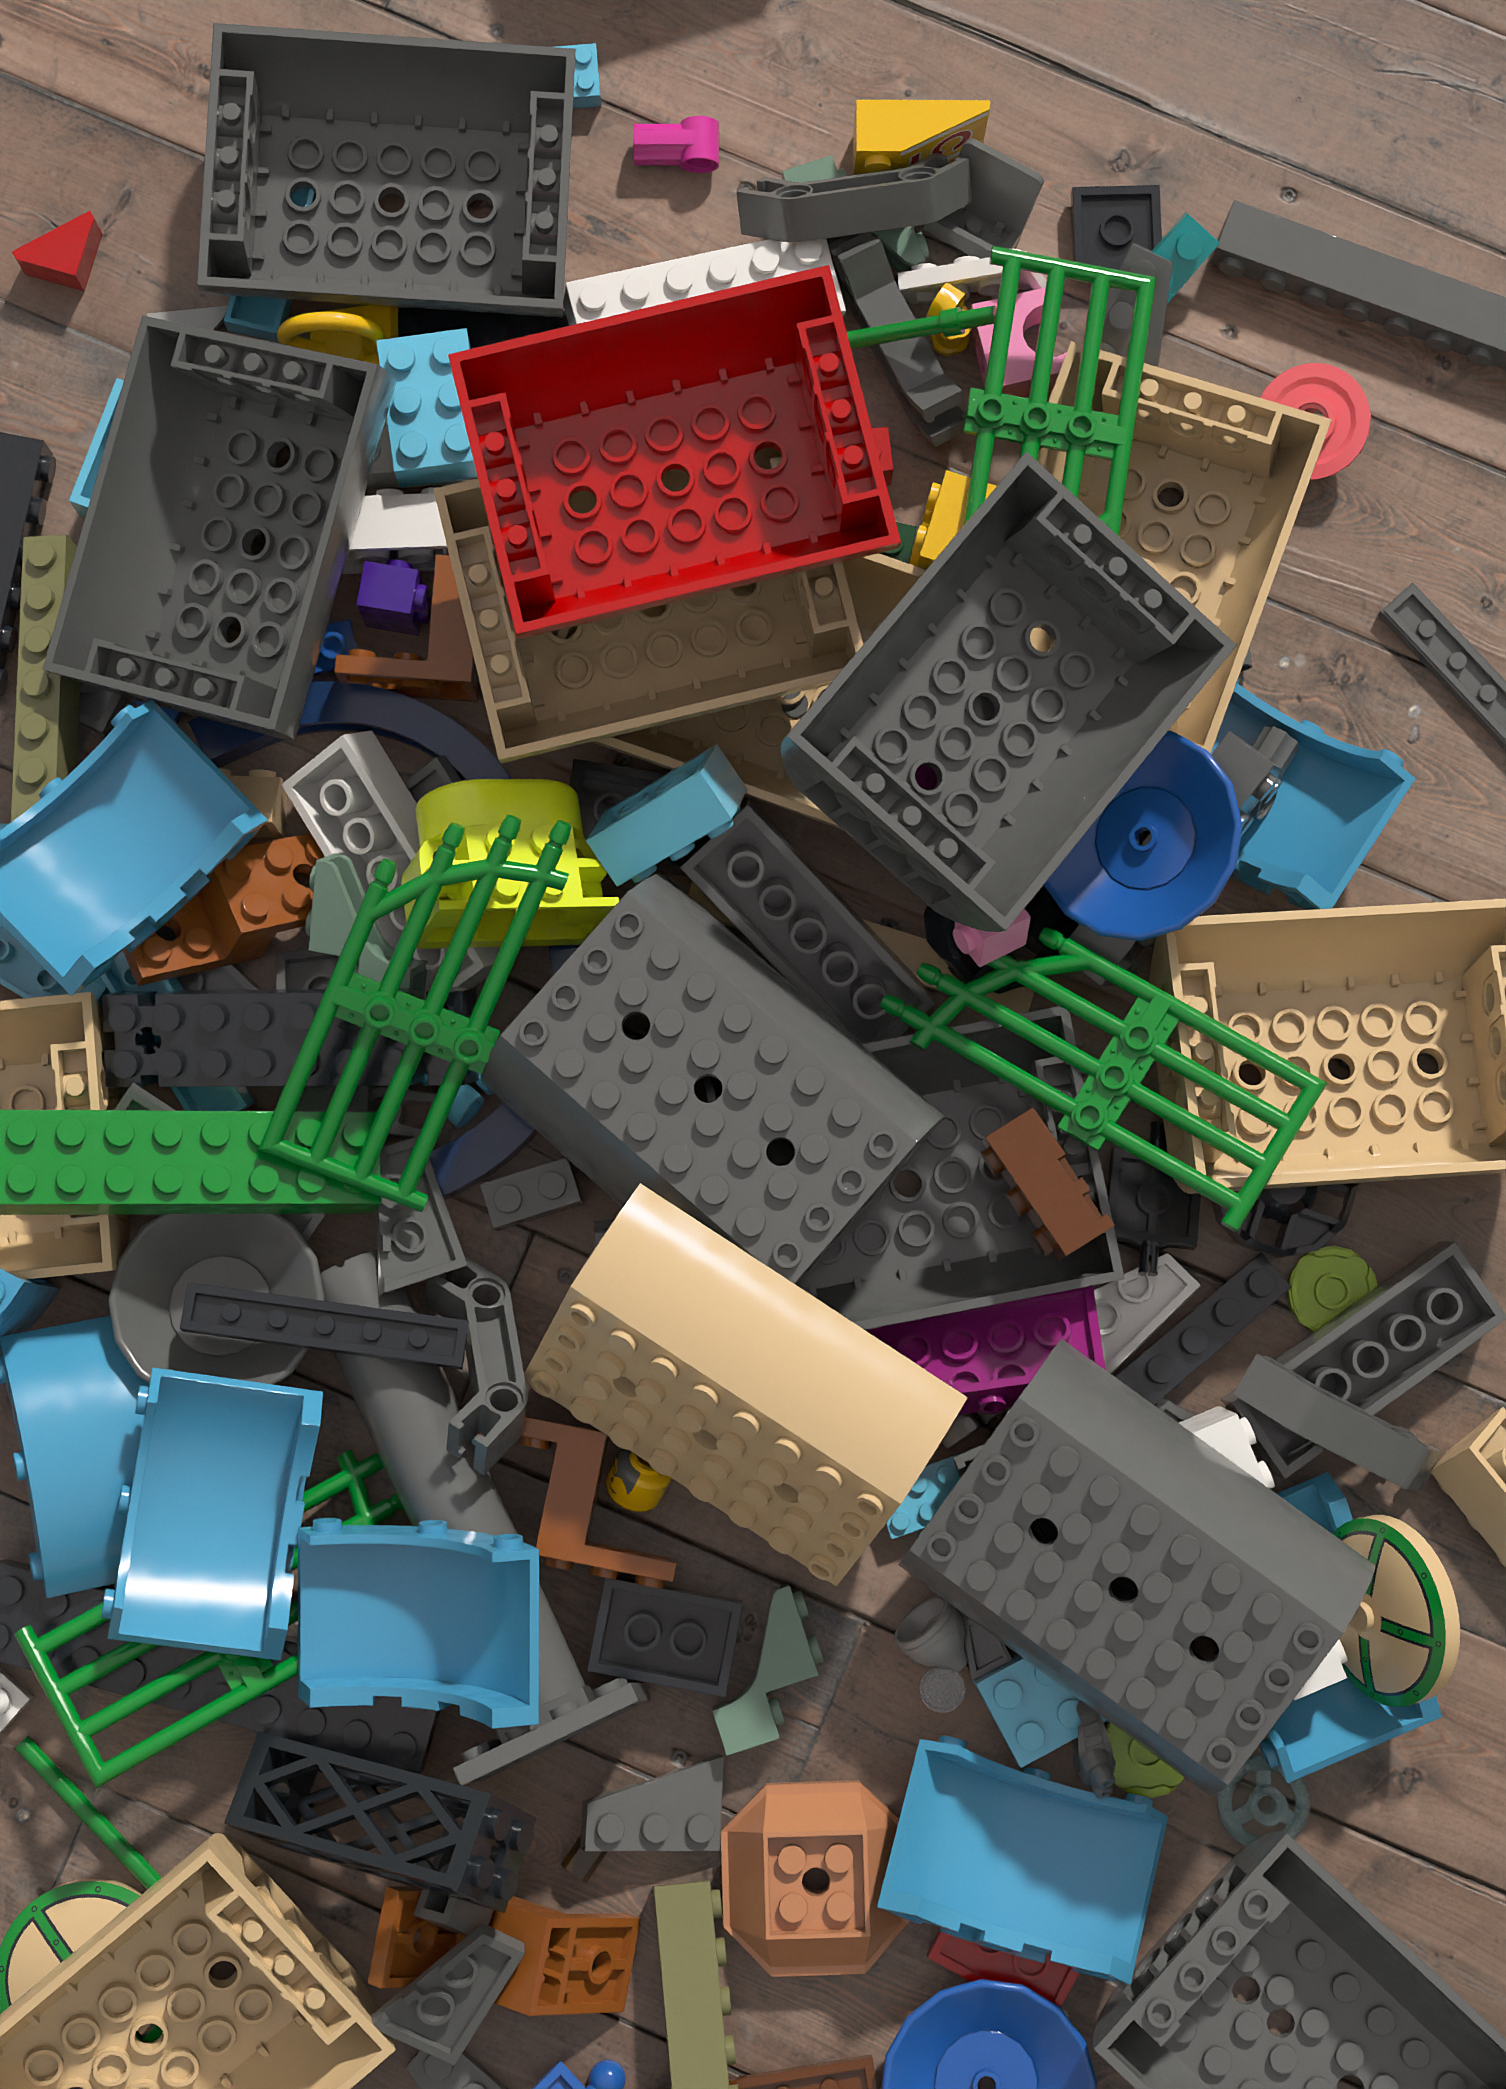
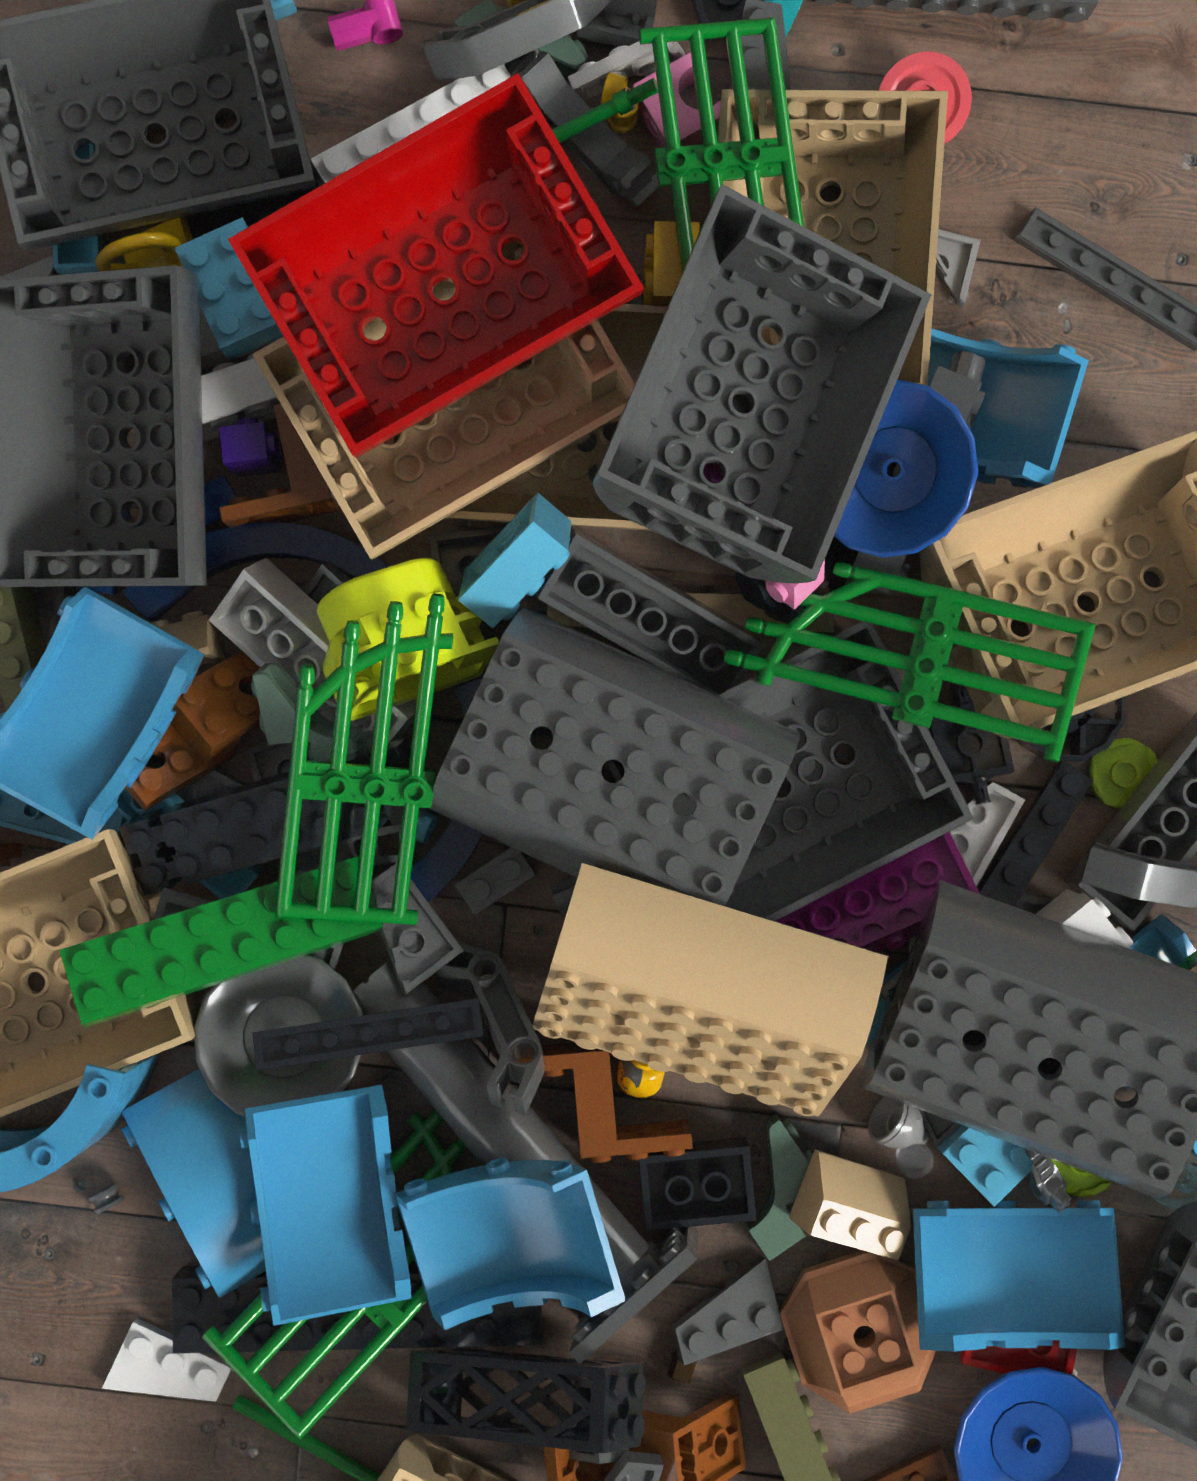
camera: 10 degrees left, 5 degrees up
(849, 1715) = (853, 1205): none -> tan slope
(1044, 1185) = (895, 767): reddish brown wedge -> none
(1297, 616) = (956, 262): none -> light grey tile

